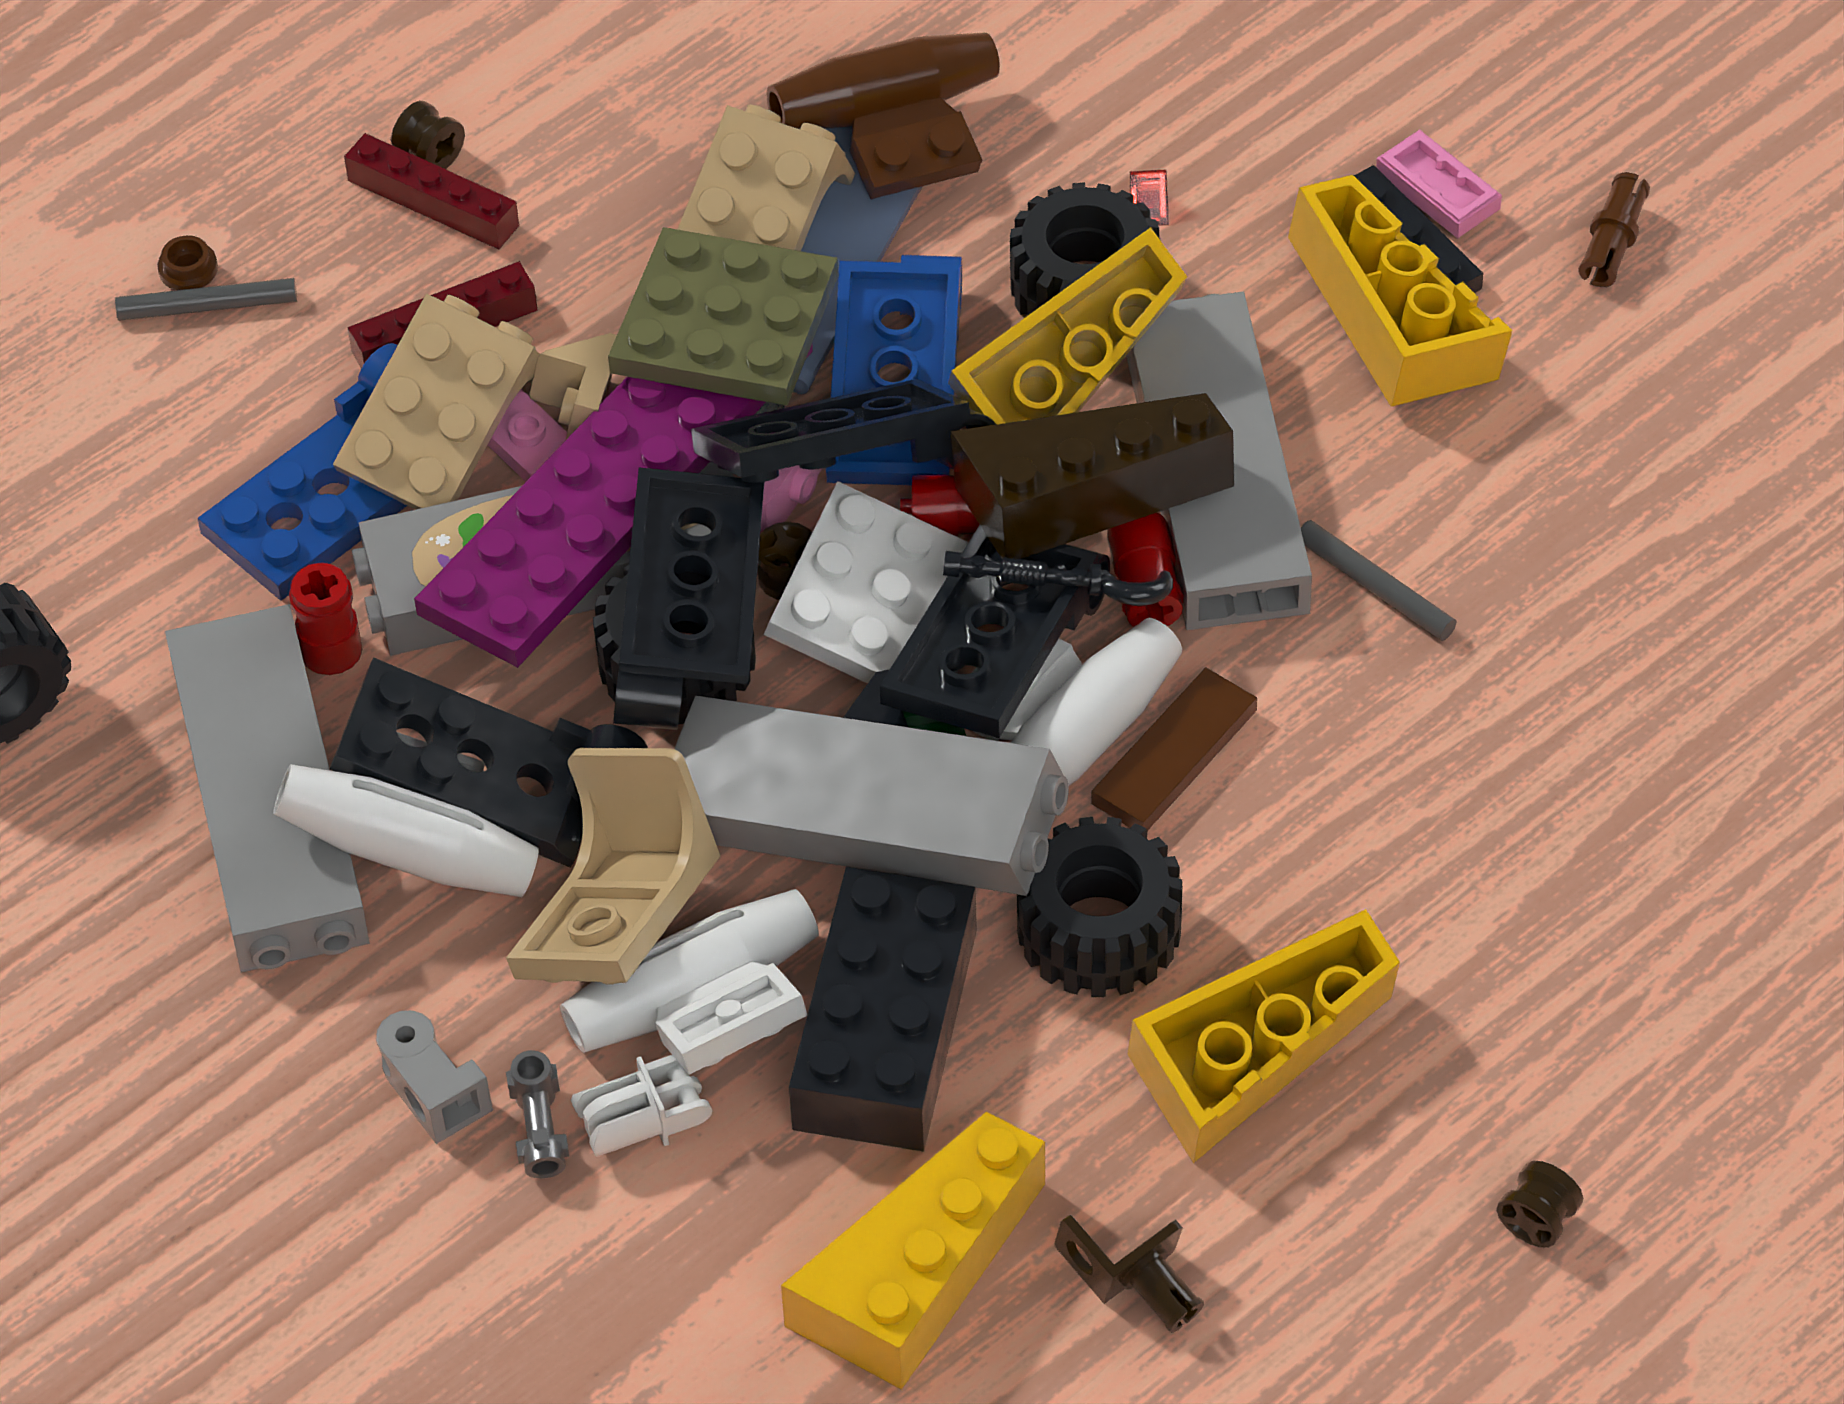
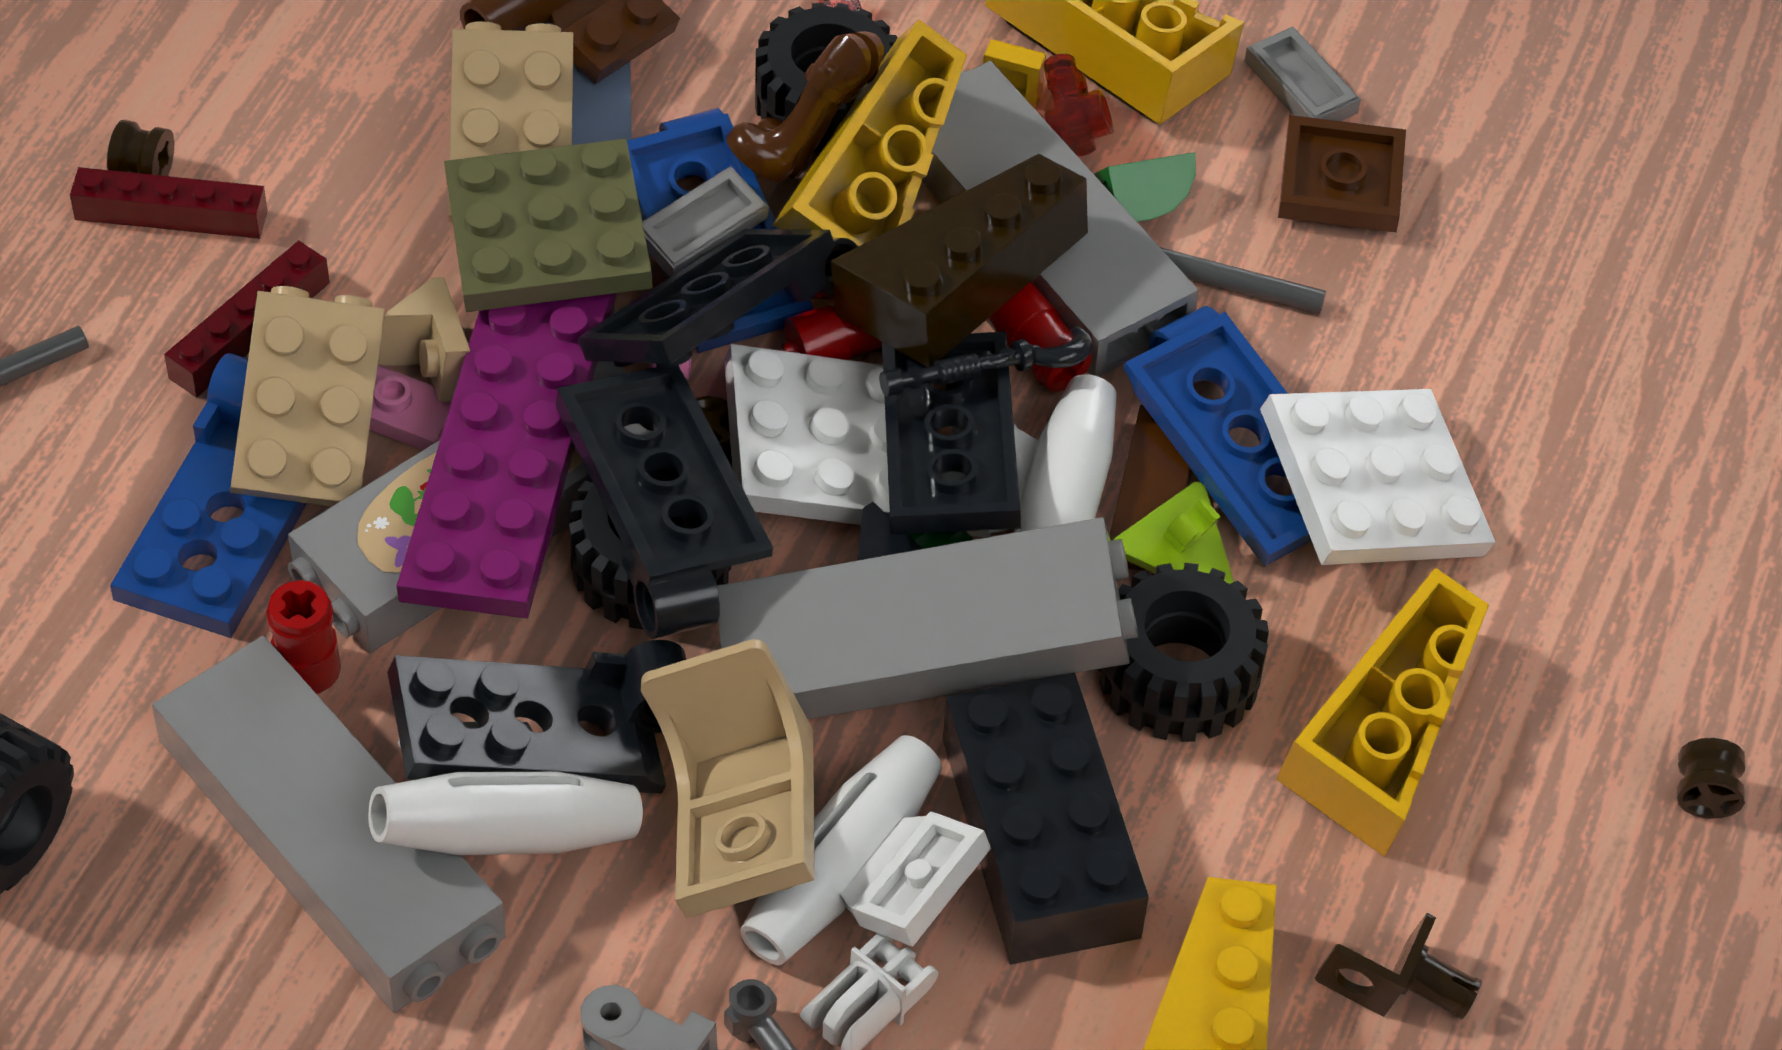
camera: 30 degrees left, 0 degrees up
(880, 357) = (702, 220): none -> light grey tile
(1046, 266) = (786, 147): none -> reddish brown piece
(1168, 802) = (1178, 534): none -> lime piece
(1273, 311) = (1020, 66): none -> yellow plate
(1295, 638) = (1214, 350): none -> blue hinge
(1313, 363) = (1077, 113): none -> clear red plate
(1334, 462) = (1152, 185): none -> green brick
(1385, 809) = (1376, 476): none -> white plate
(1540, 511) = (1342, 173): none -> reddish brown plate
(1562, 407) = (1301, 77): none -> light grey tile

